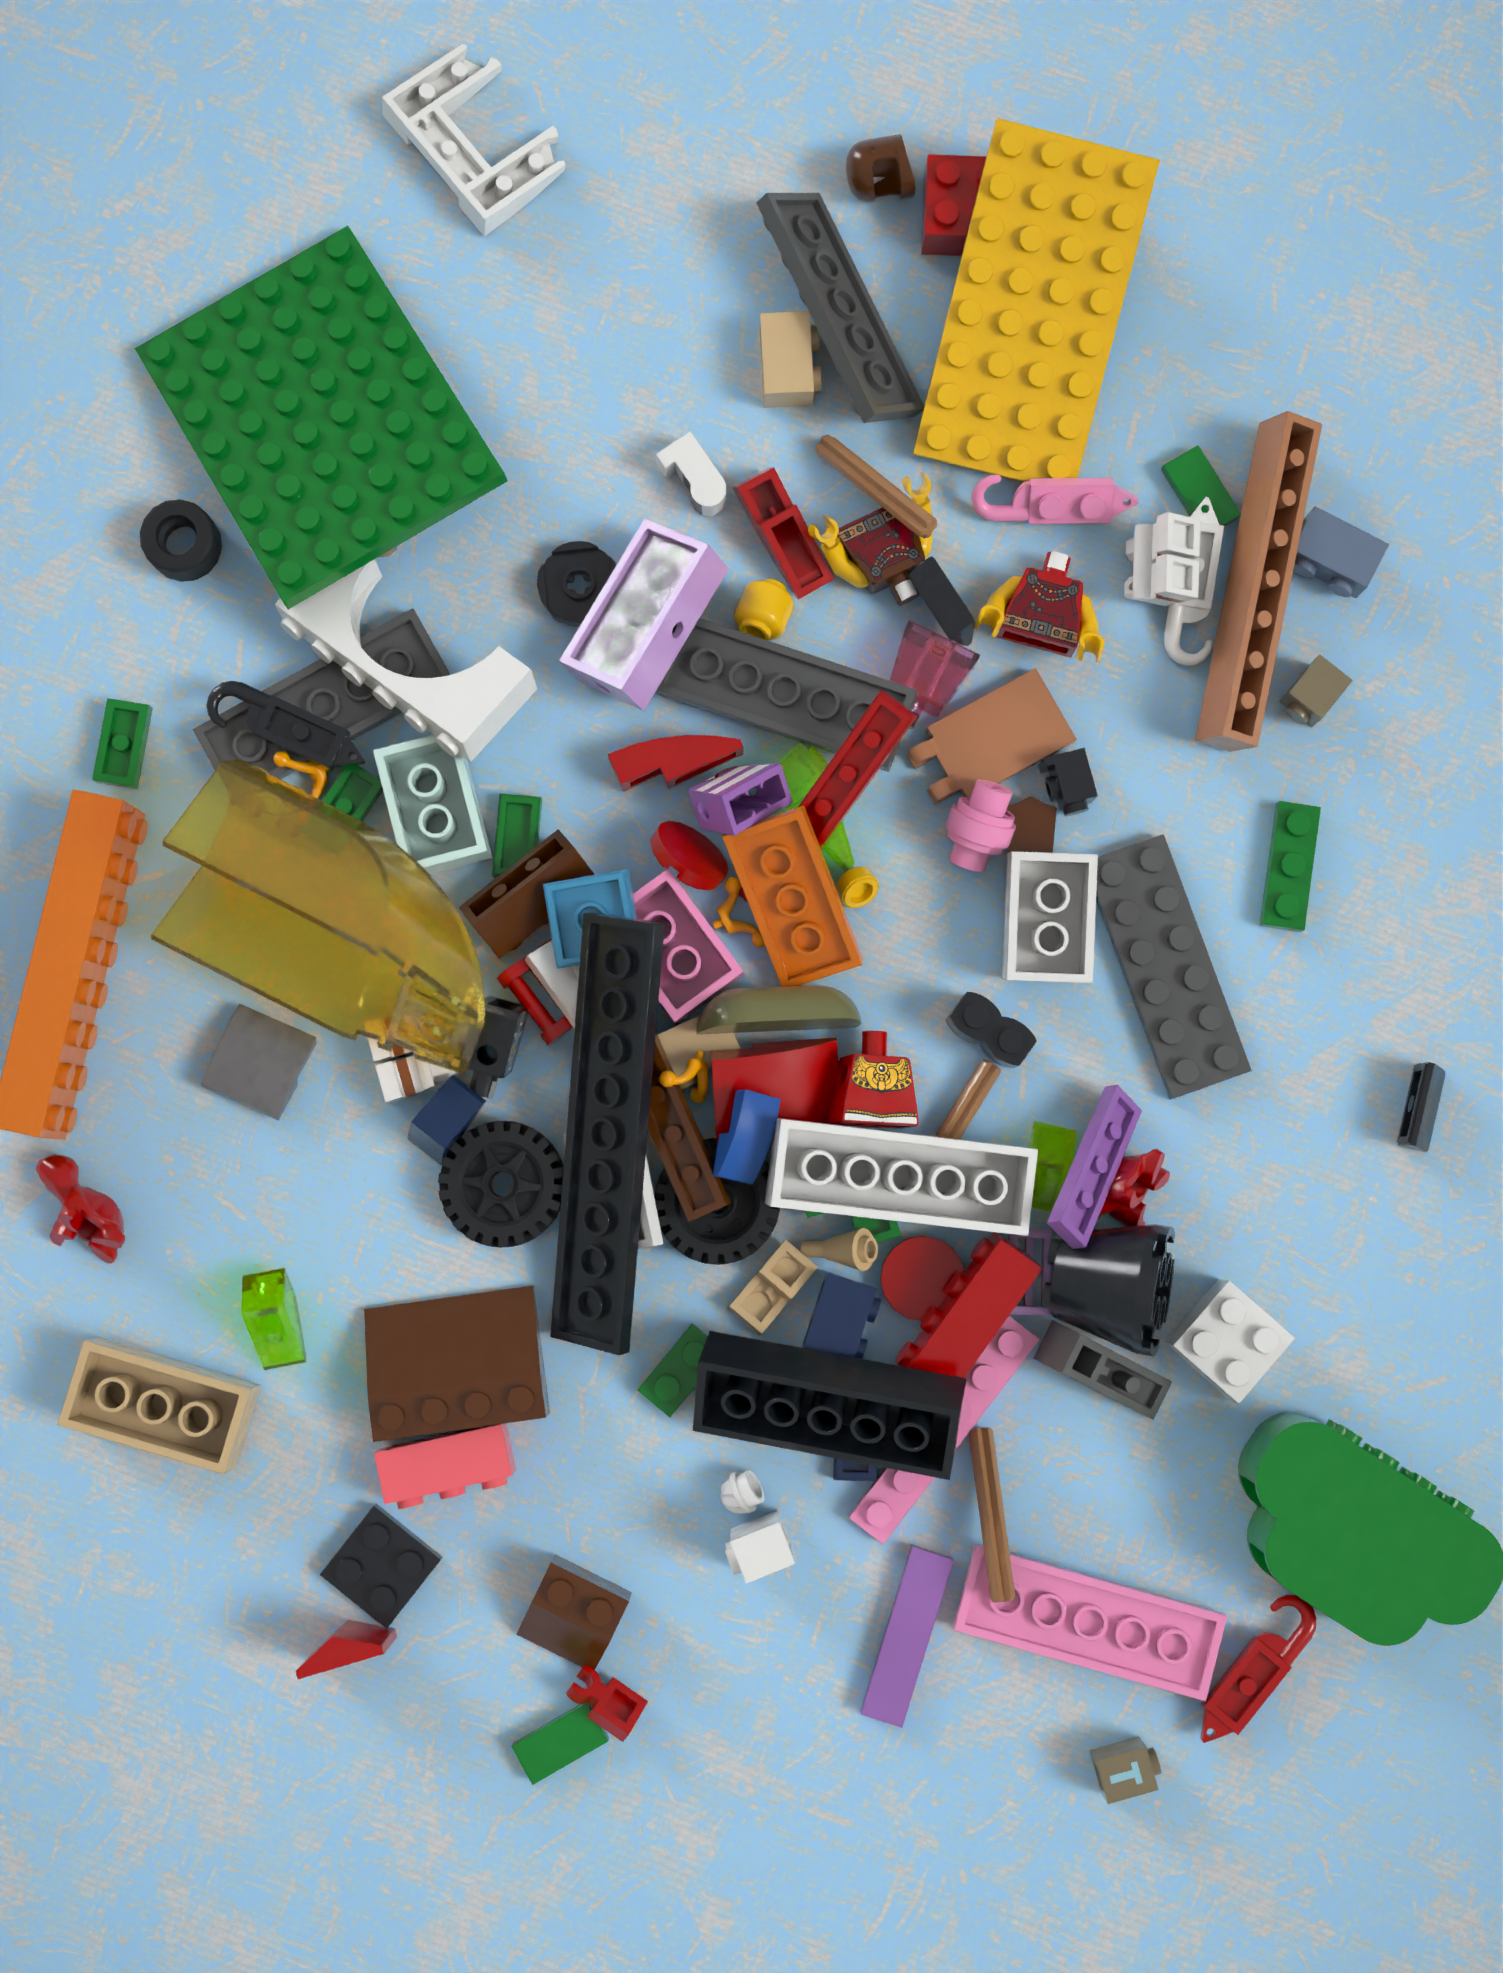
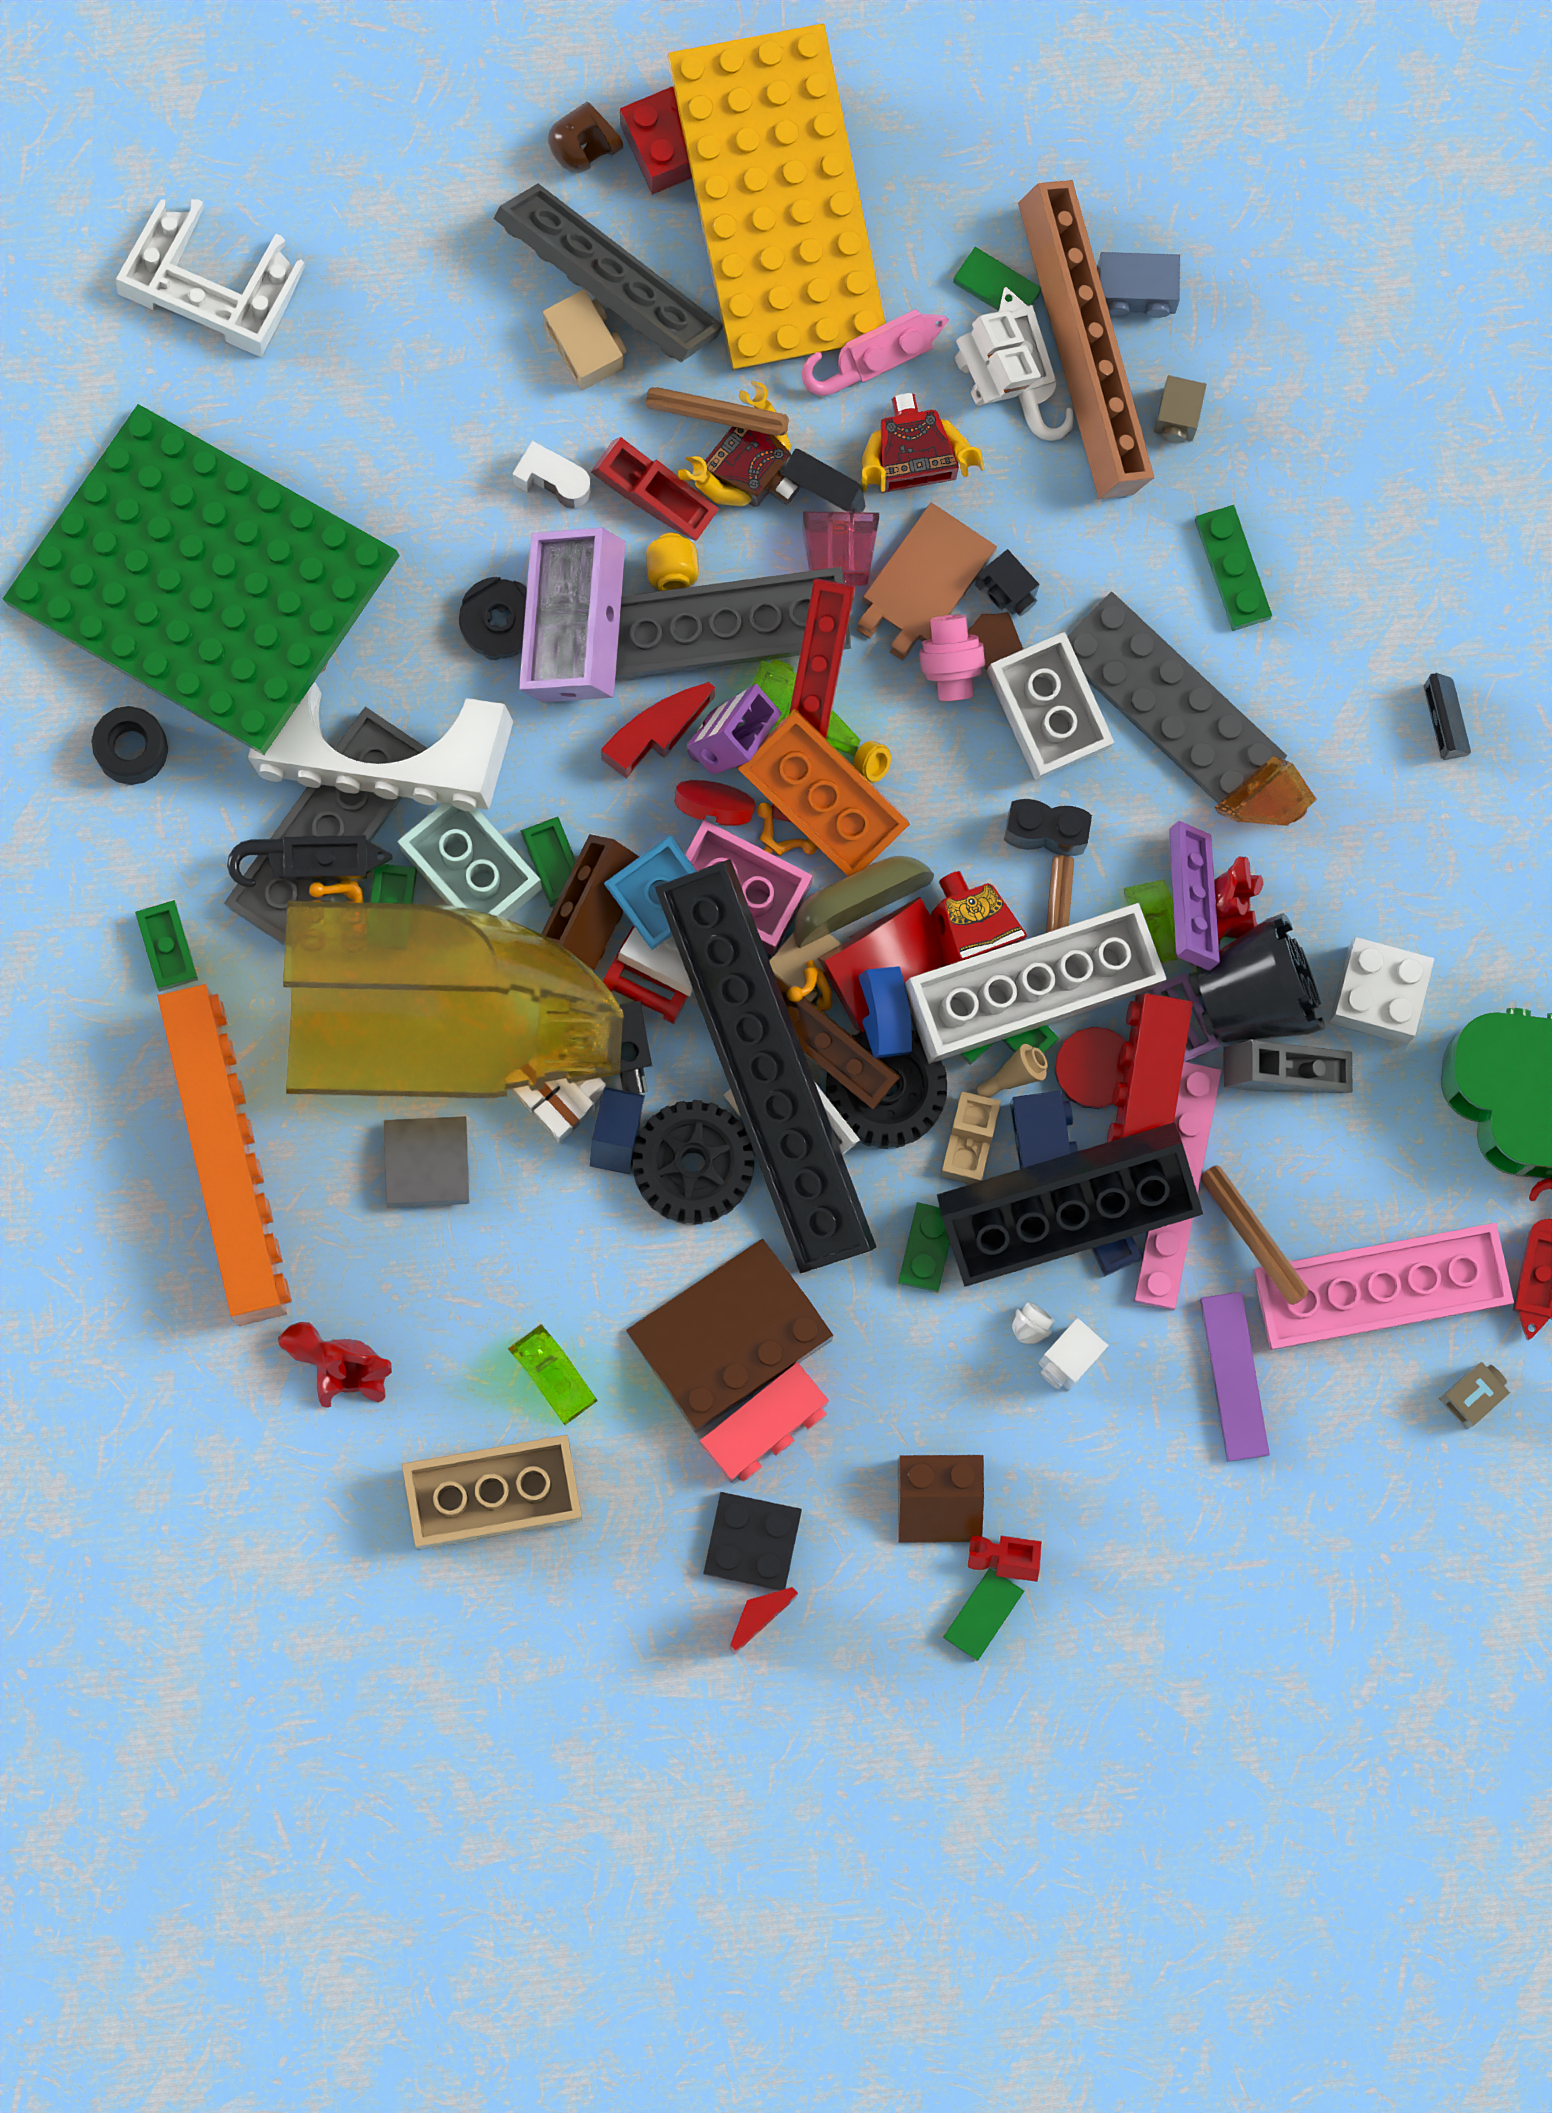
camera: 30 degrees left, 5 degrees down
(1214, 1103) = (1269, 796): none -> clear orange slope

